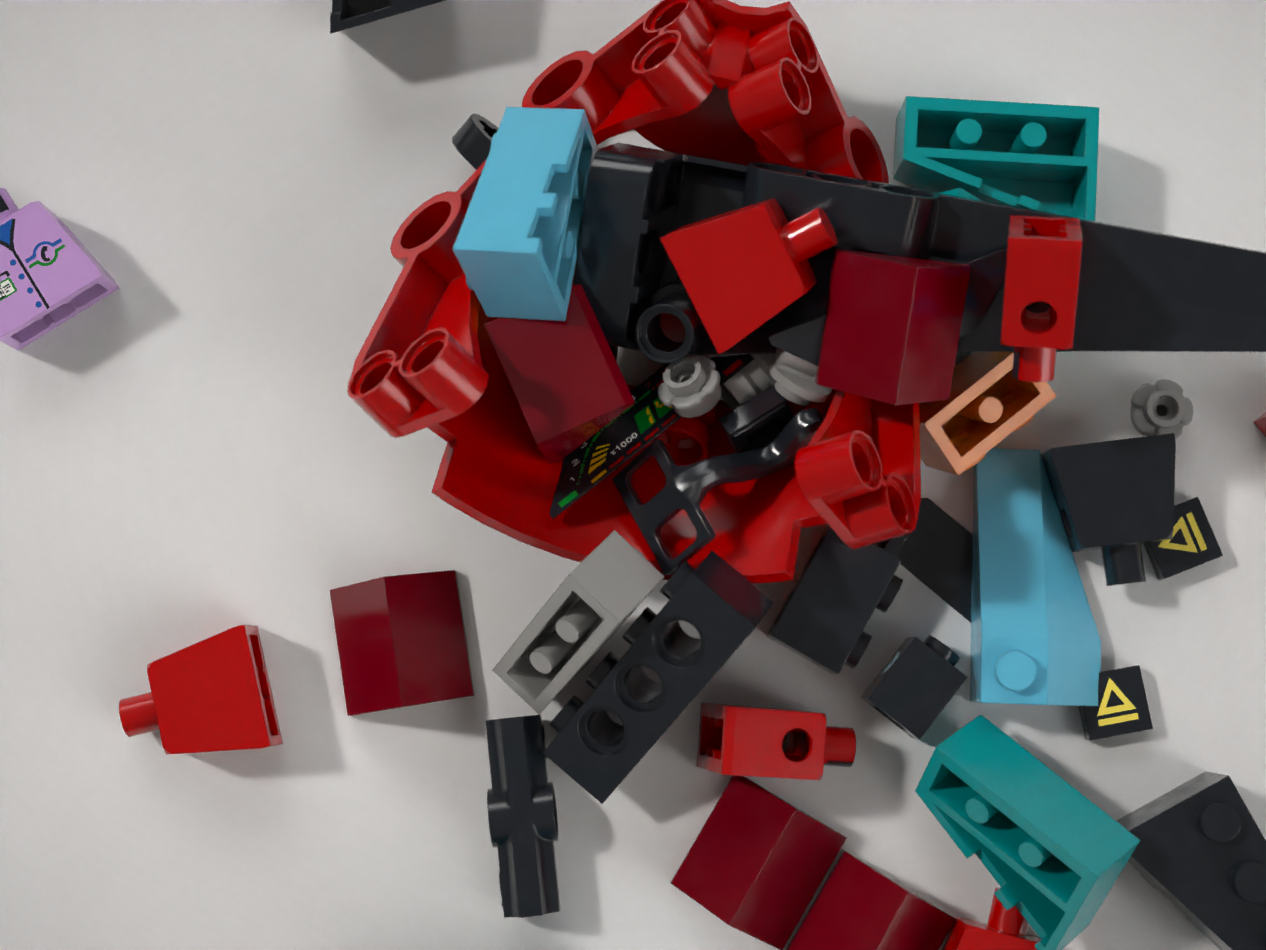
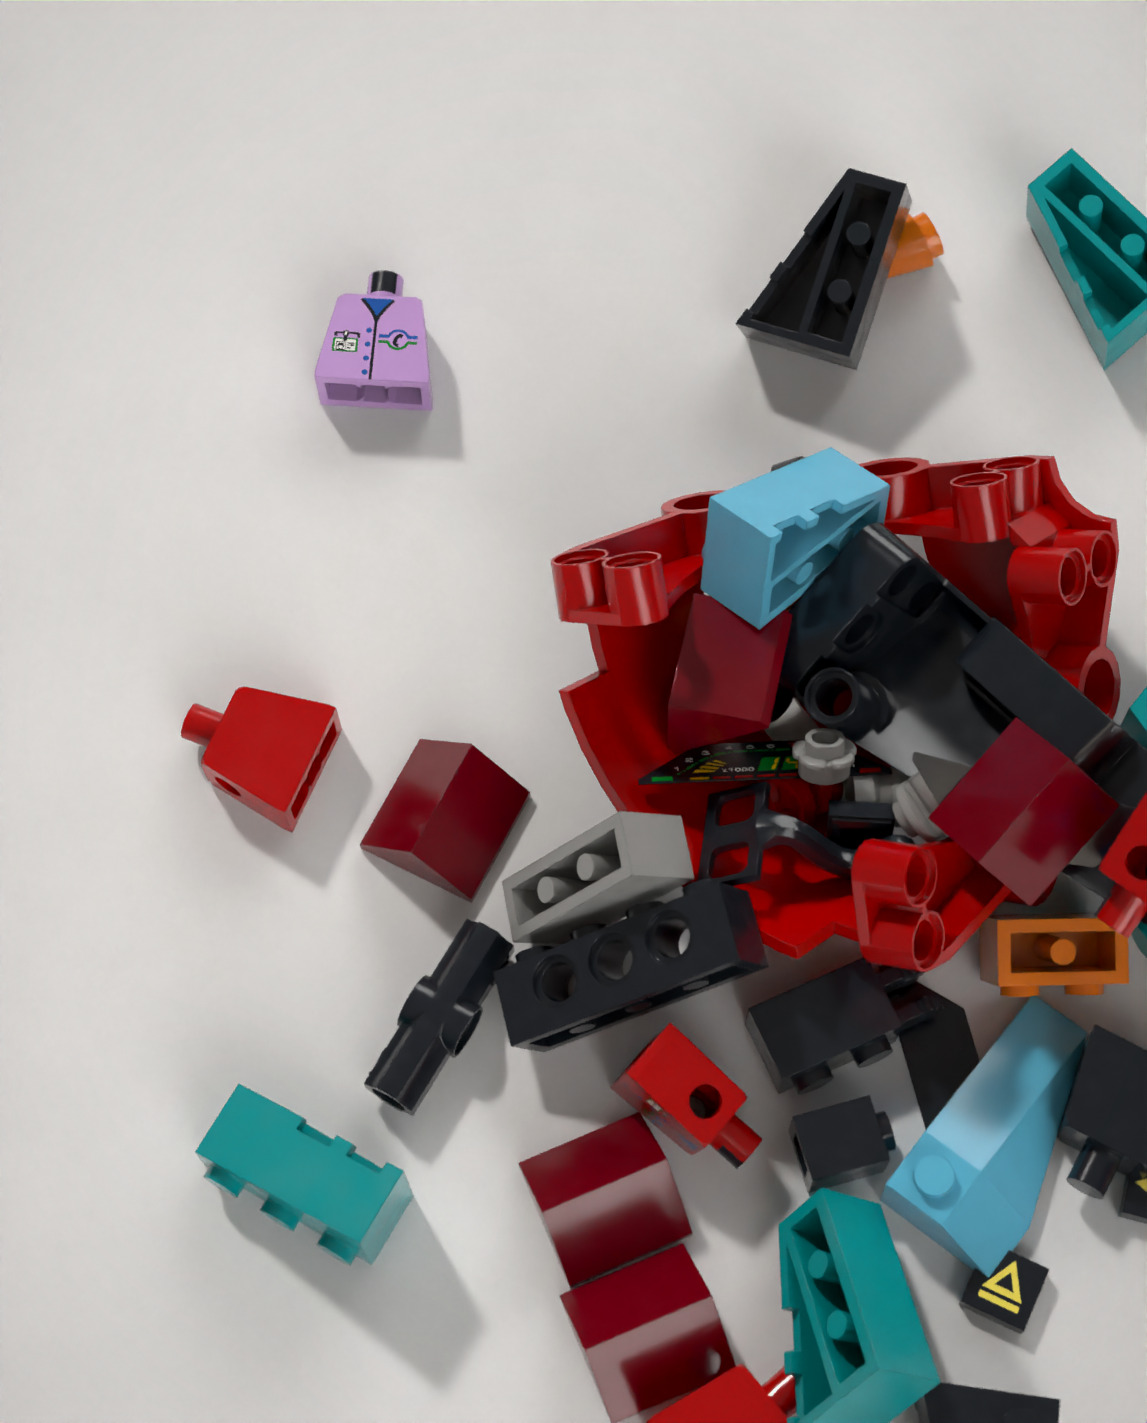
camera: 35 degrees right, 15 degrees down
(747, 265) = (935, 687): red torso -> none

